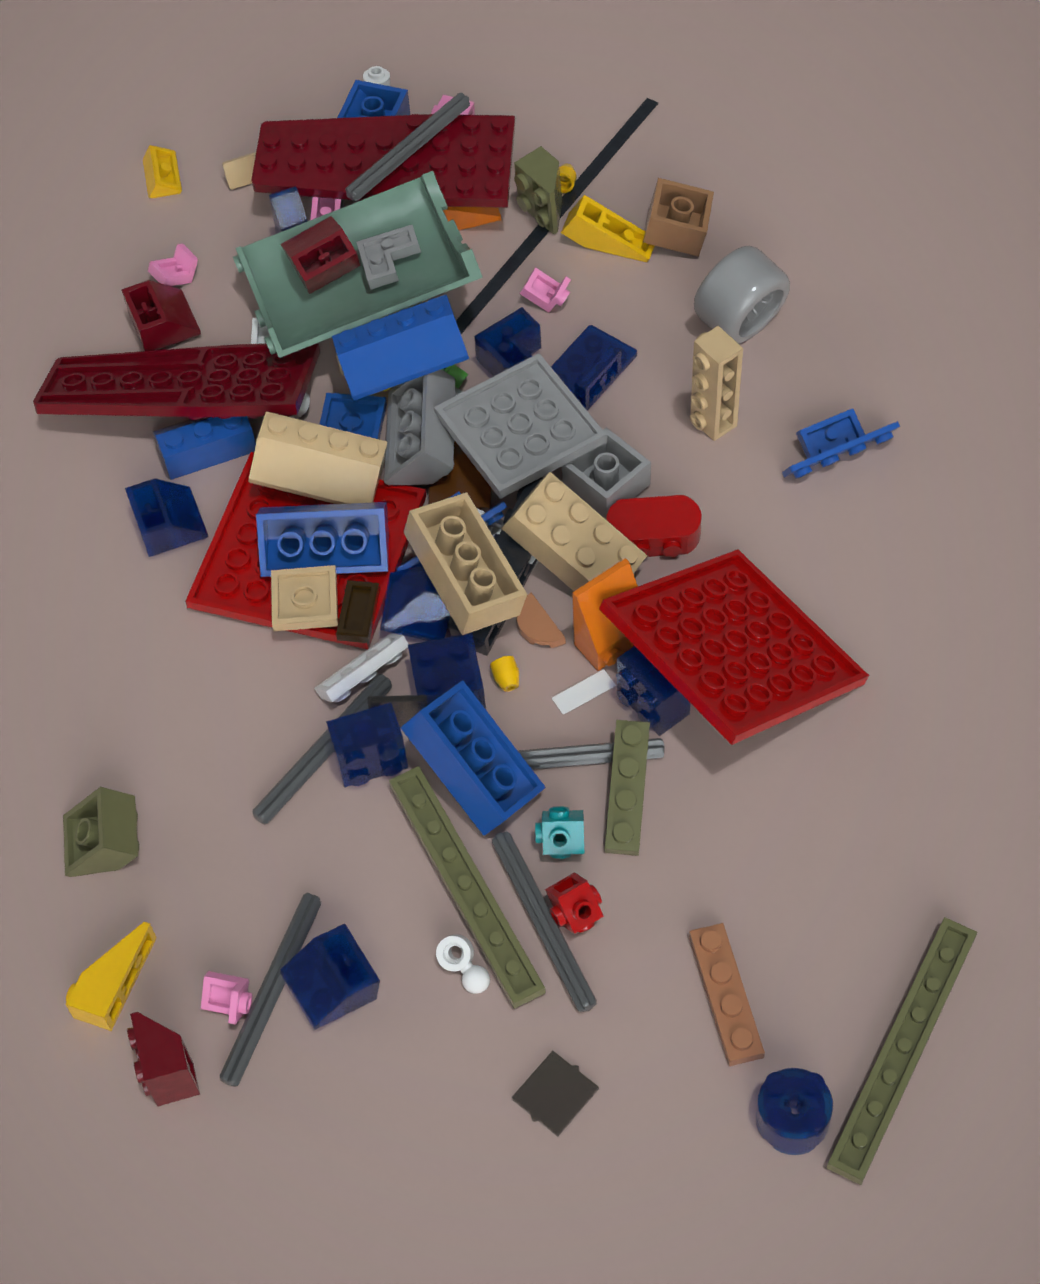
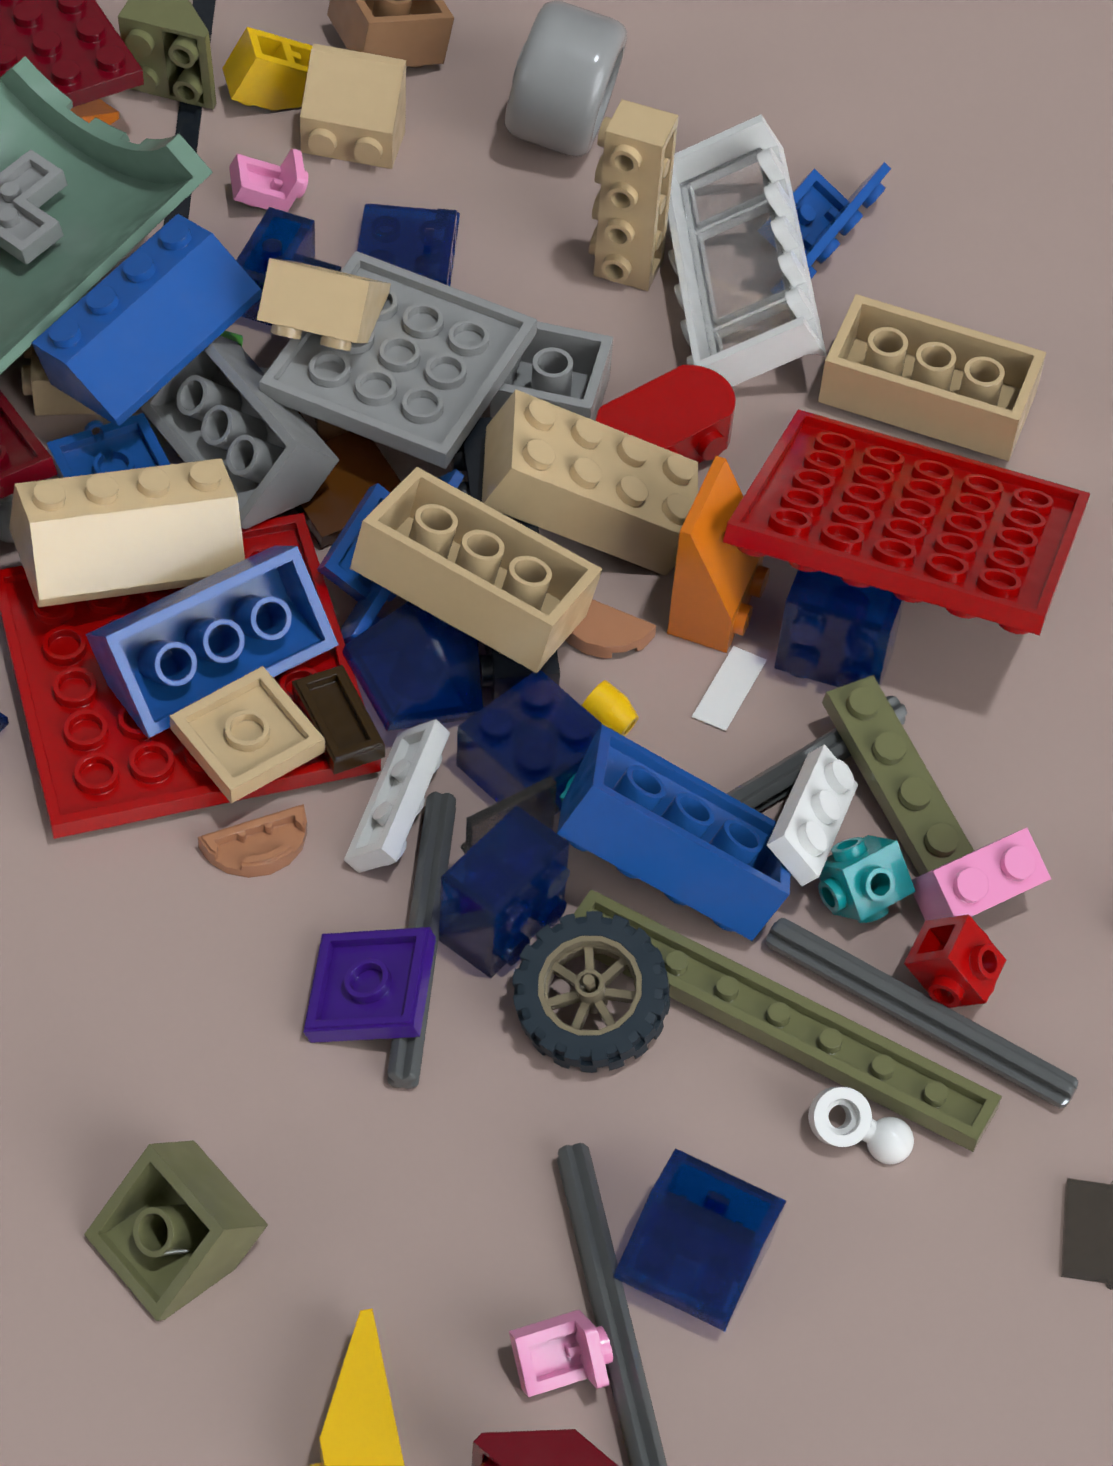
camera: 40 degrees left, 5 degrees down
(276, 760) = (370, 985): none -> dark purple tile
(281, 659) = (257, 845): none -> nougat tile
(348, 810) = (588, 937): none -> black wheel
(491, 375) = (321, 302): none -> tan slope
(558, 784) = (813, 815): none -> white plate
(617, 265) = (353, 106): none -> tan slope
(622, 865) = (981, 878): none -> bright pink brick
(767, 443) = (740, 255): none -> window
(825, 564) = (931, 377): none -> tan brick

